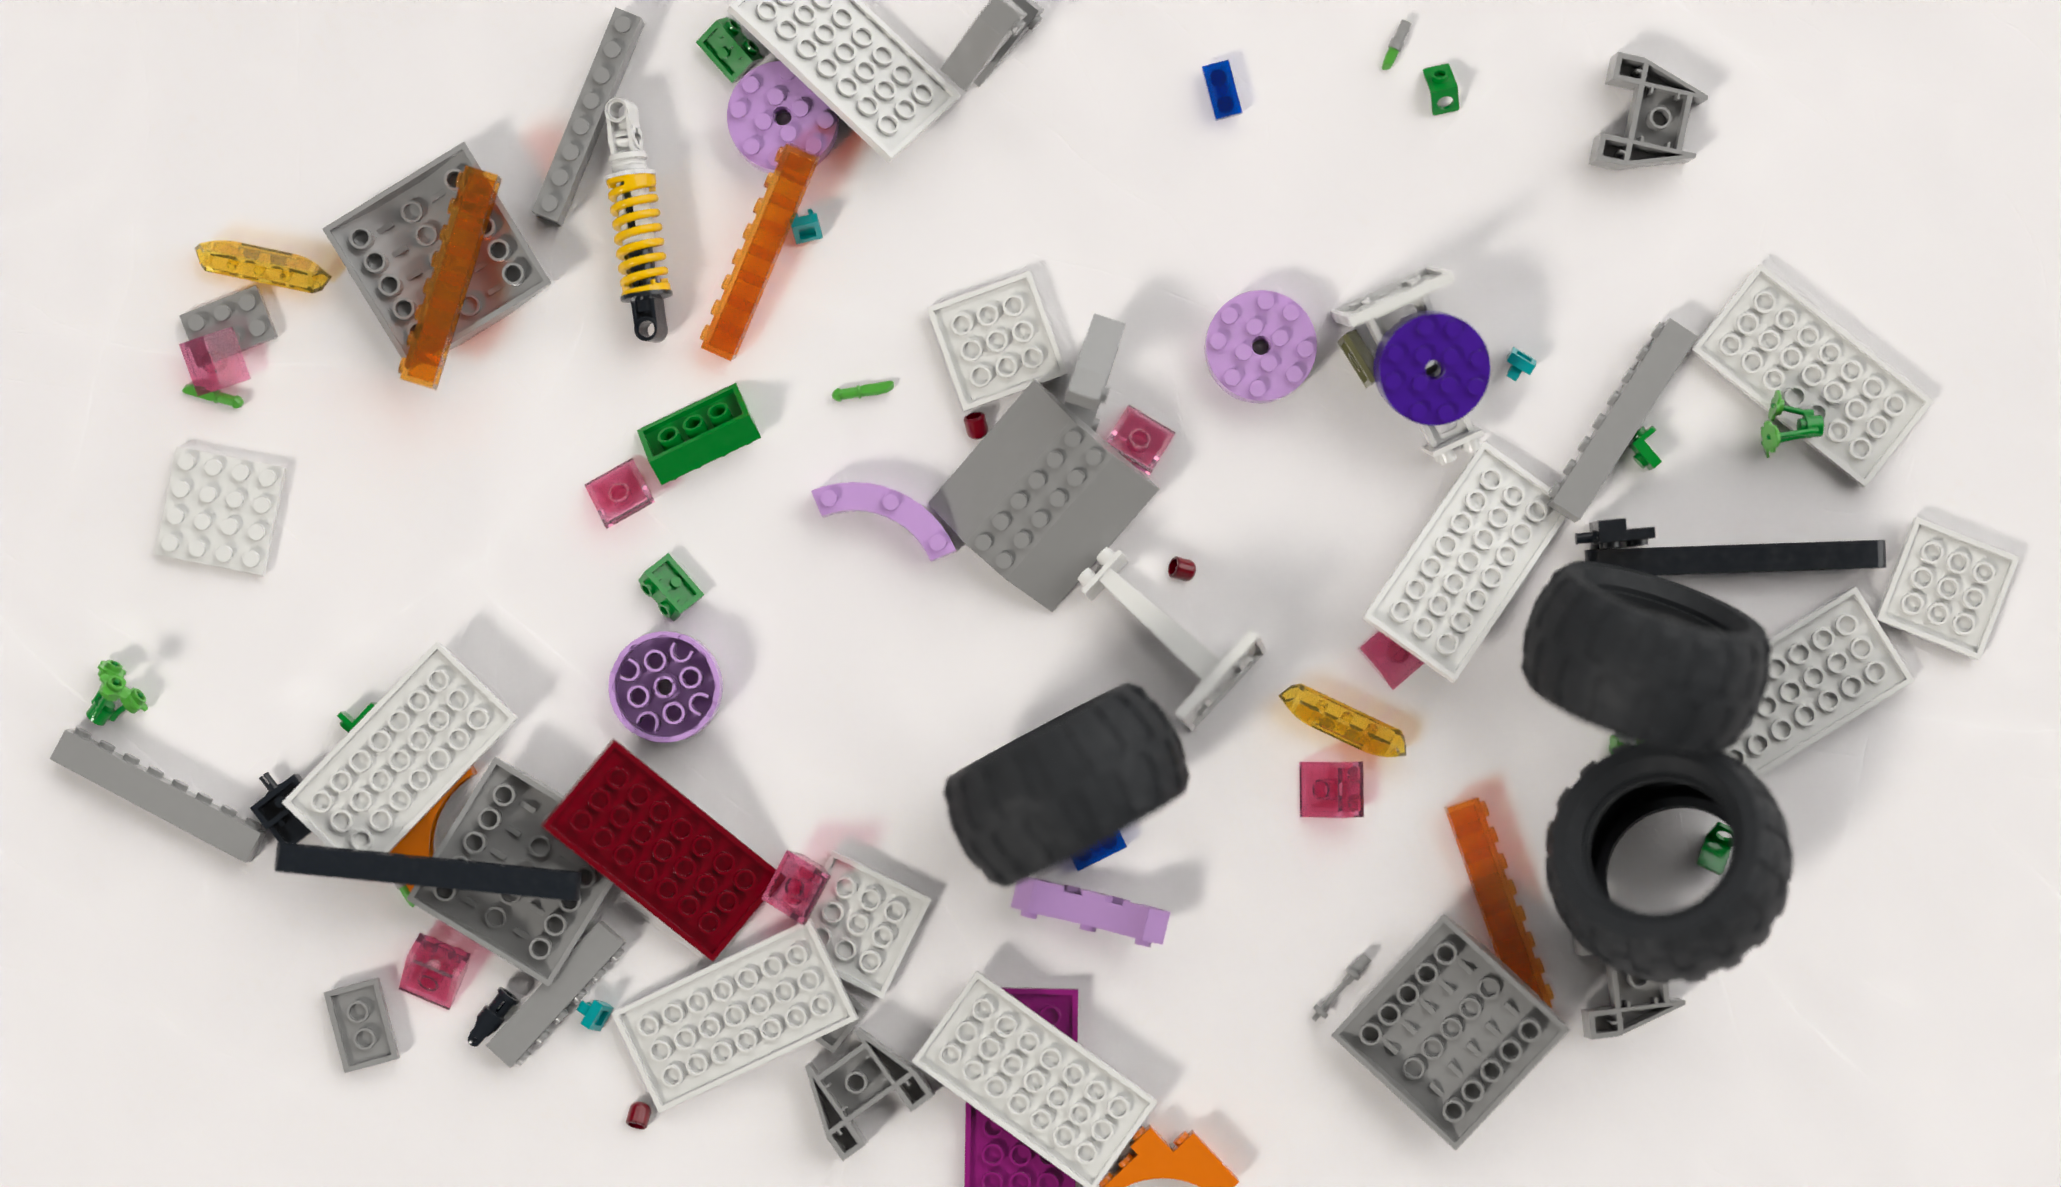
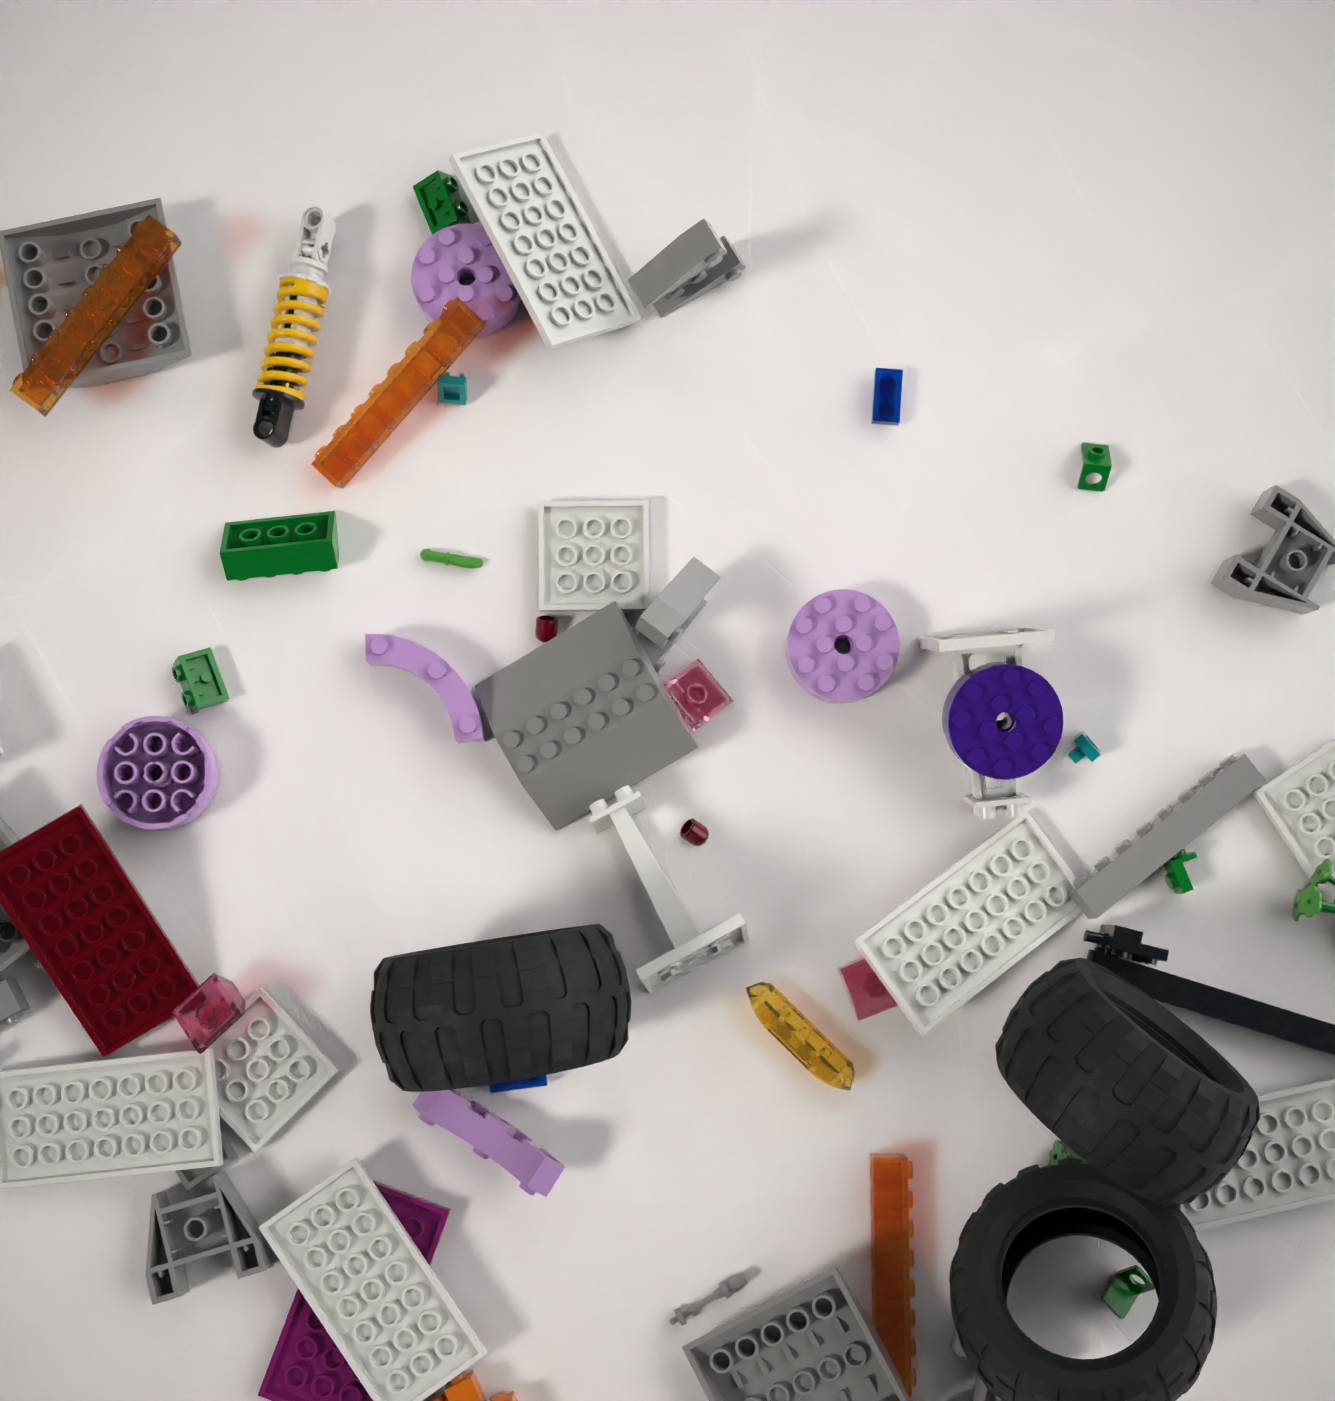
camera: 10 degrees right, 5 degrees down
(588, 116) = (283, 220): light grey brick -> none
(619, 493) = (185, 575): clear pink slope -> none
(1331, 789) = (766, 1098): clear pink slope -> none
(1358, 356) = (932, 688): olive slope -> none
(1396, 44) = (1064, 410): light grey piece -> none

